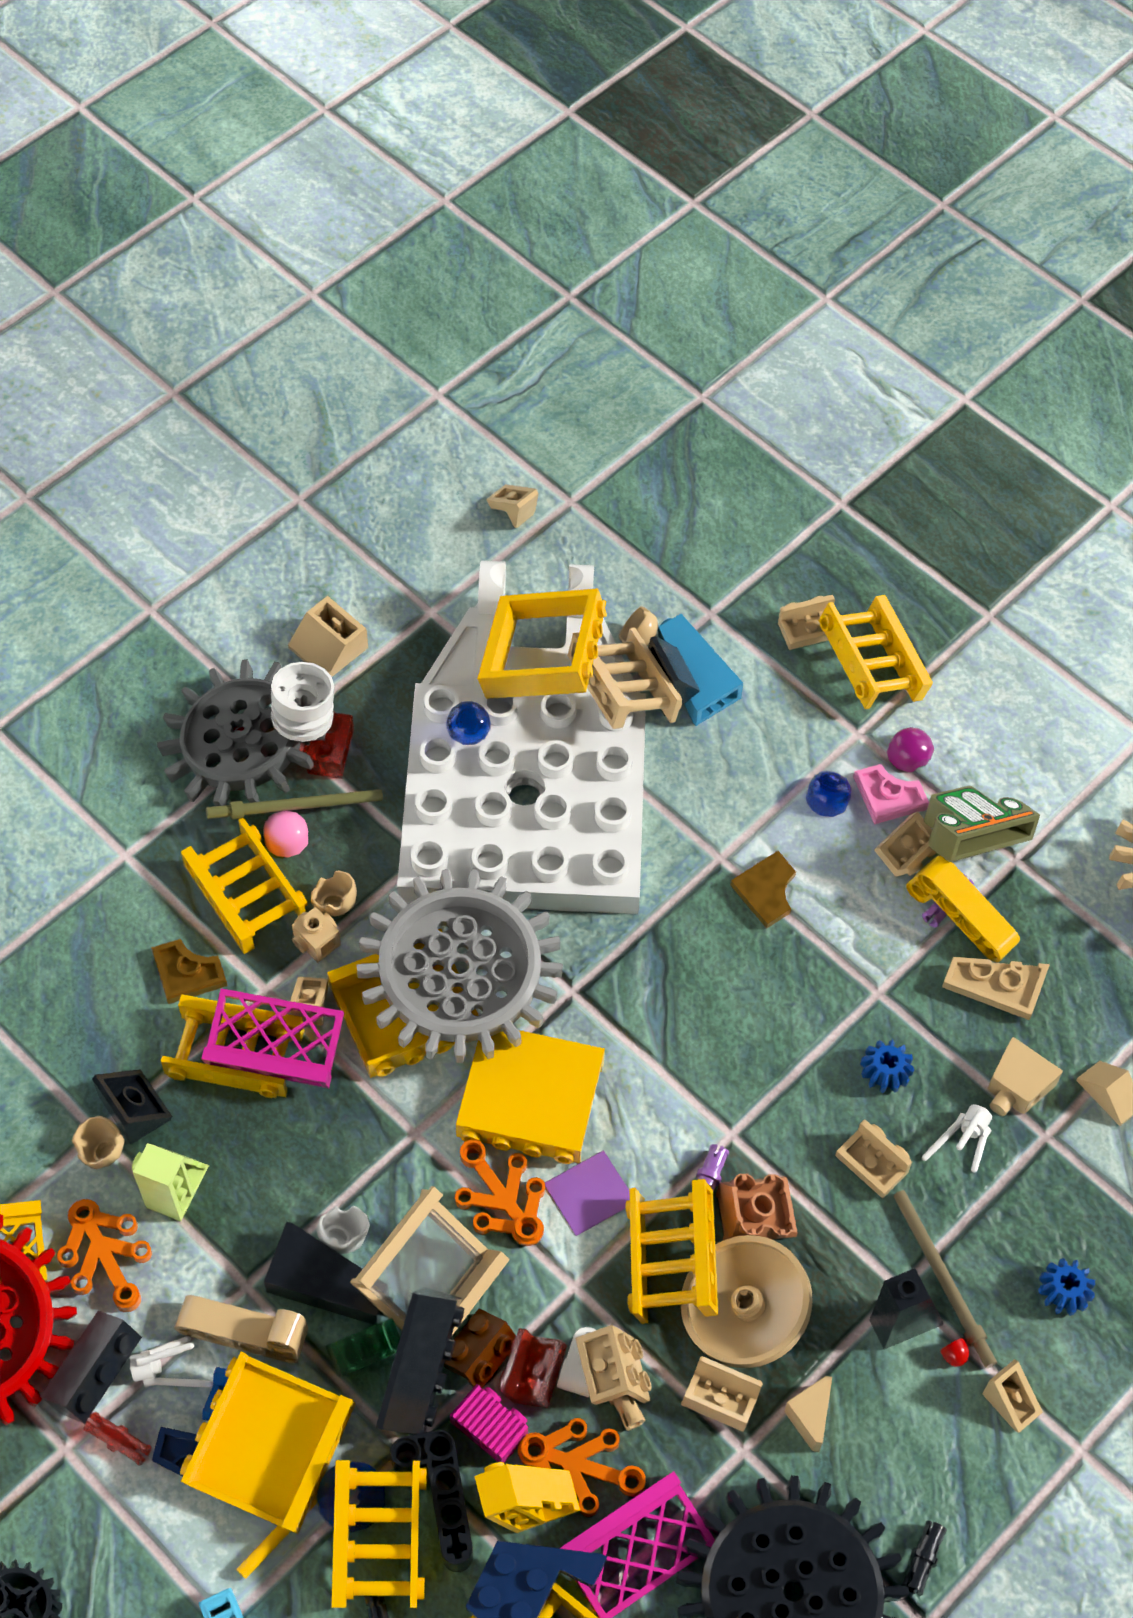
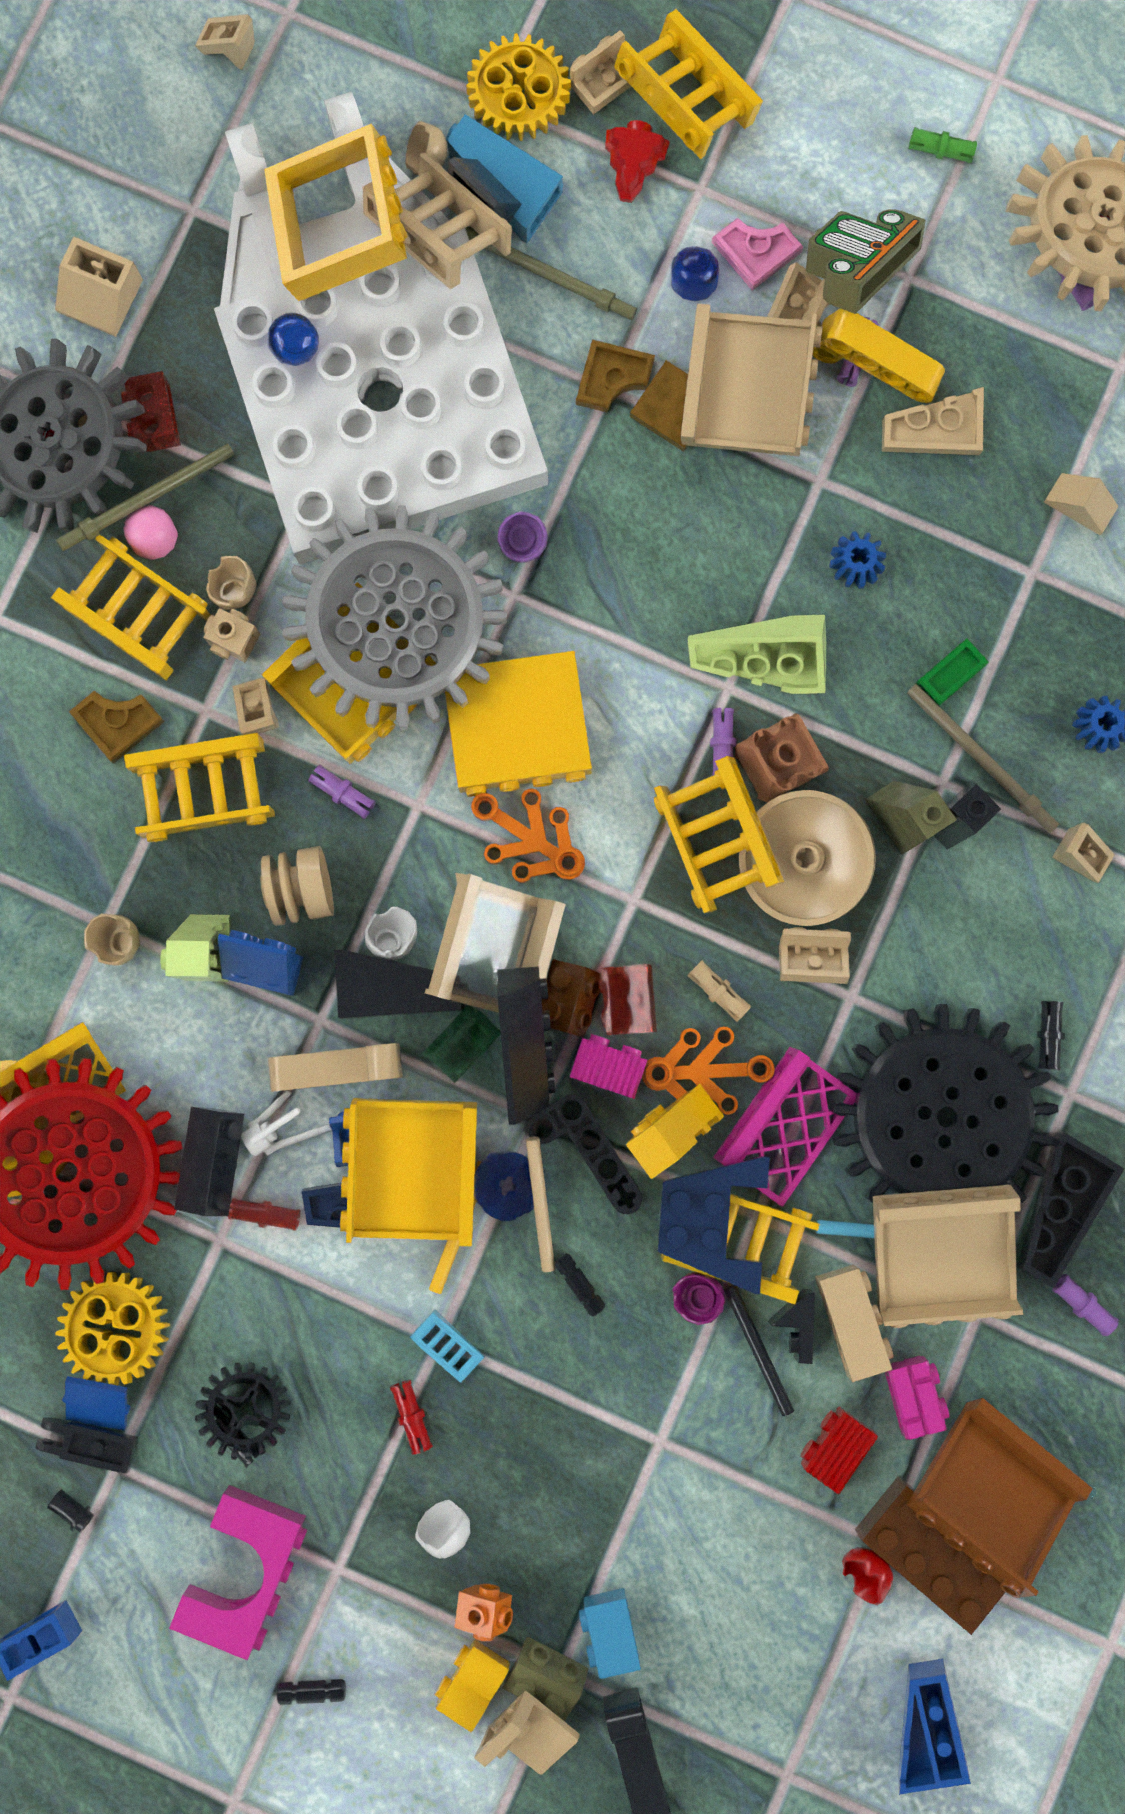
camera: 20 degrees left, 25 degrees up
(101, 1249) = (165, 1041): orange plant -> none
(131, 1103) = (125, 883): black slope -> none
(216, 1205) = (257, 964): none -> blue slope
(266, 1064) = (242, 798): dark pink fence -> none
(272, 1154) = (291, 886): none -> tan wheel
(302, 701) = (104, 382): white wheel -> none
(346, 1551) = (515, 1210): yellow fence -> none
(353, 1096) = (341, 791): none -> medium lavender pin
(373, 1528) = (540, 1204): none -> tan bar
(572, 1374) = (671, 984): white piece -> none
(589, 1192) = (612, 800): medium lavender sticker -> none
(598, 944) = (522, 537): none -> medium lavender hair
(613, 1365) = (706, 973): tan bracket -> none
(727, 845) = (610, 373): none -> pearl gold tile
(741, 786) = (603, 298): none -> olive bar
(756, 605) = (543, 73): none -> yellow gear
(784, 1116) = (773, 652): none -> yellowish green wedge
(809, 1412) = (903, 940): tan slope -> none
(810, 690) = (634, 156): none -> red rock
(840, 889) = (749, 382): none -> tan panel
(855, 1297) = (909, 813): none -> olive slope
(874, 1158) = (878, 663): tan bracket -> none
(910, 749) = (761, 188): magenta hair -> none
(942, 1193) = (952, 672): none -> green tile
(956, 1352) = (1018, 829): red hinge -> none
(973, 1124) = (962, 590): white plant -> none
(1021, 1079) = (992, 523): tan torso -> none
(1078, 767) = (942, 145): none -> bright green pin

